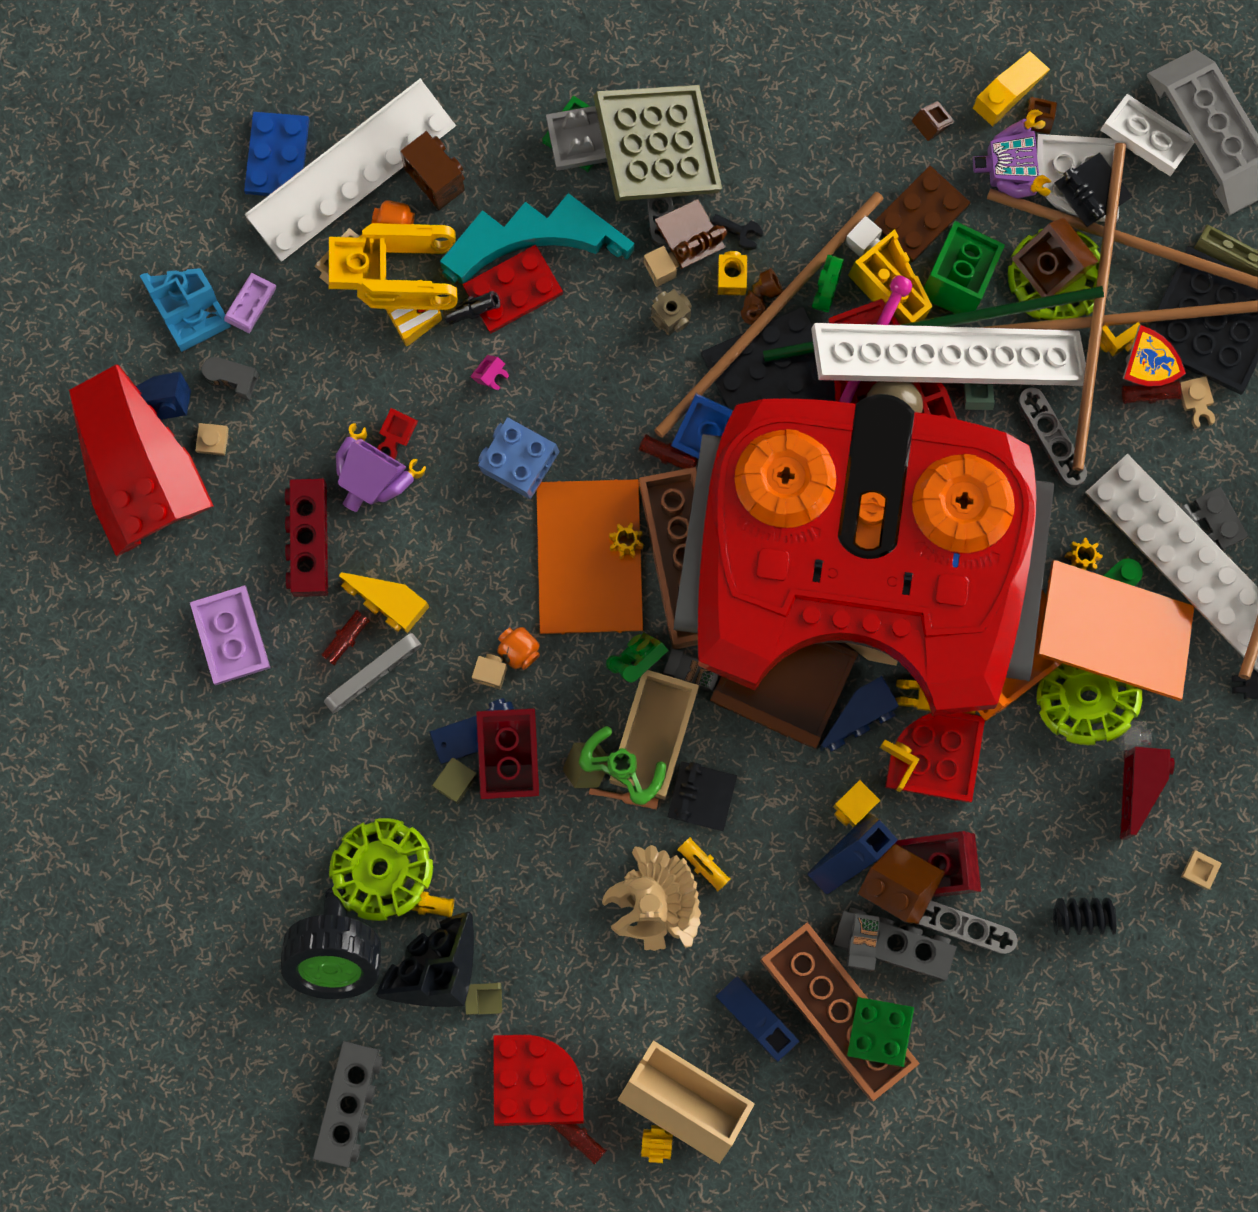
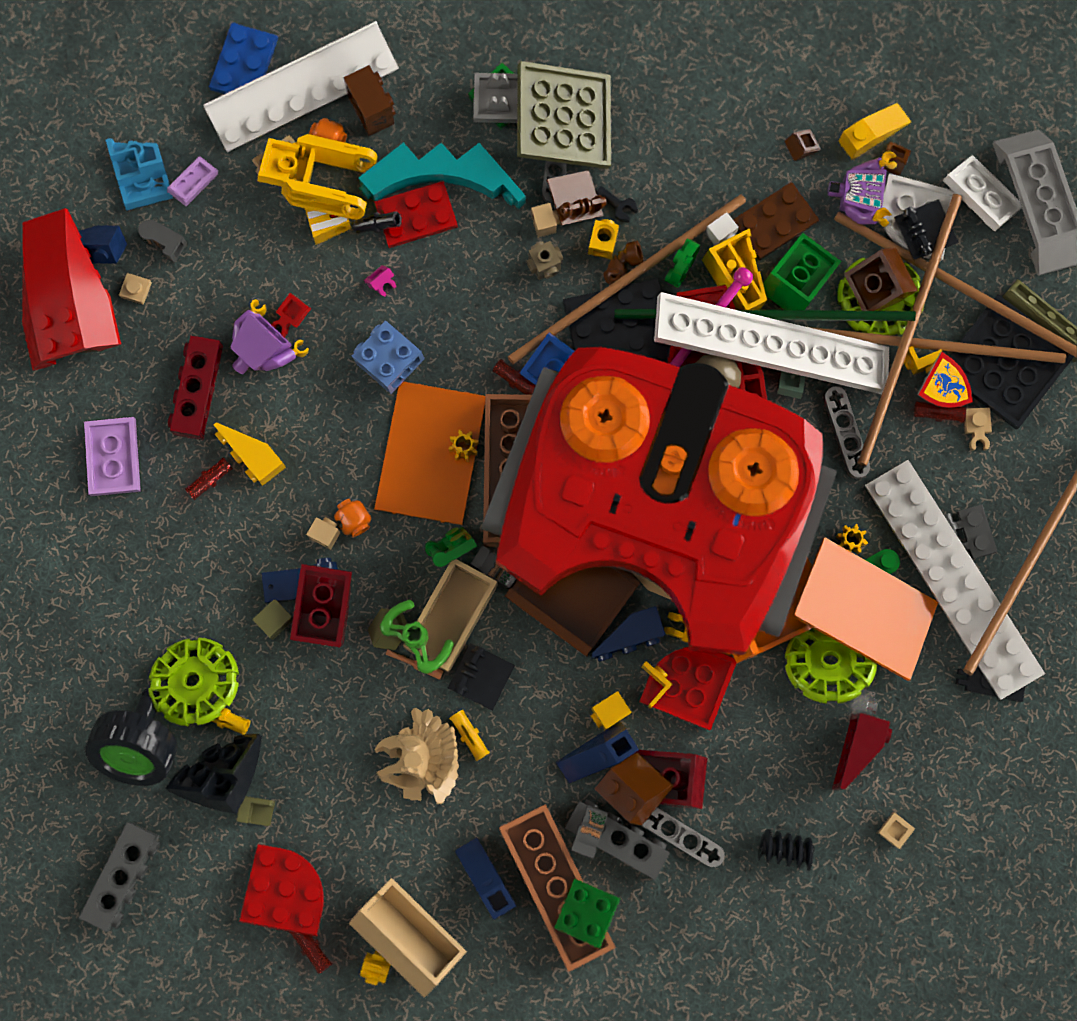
camera: 10 degrees right, 0 degrees up
(372, 673) = (224, 513): light grey beam -> none

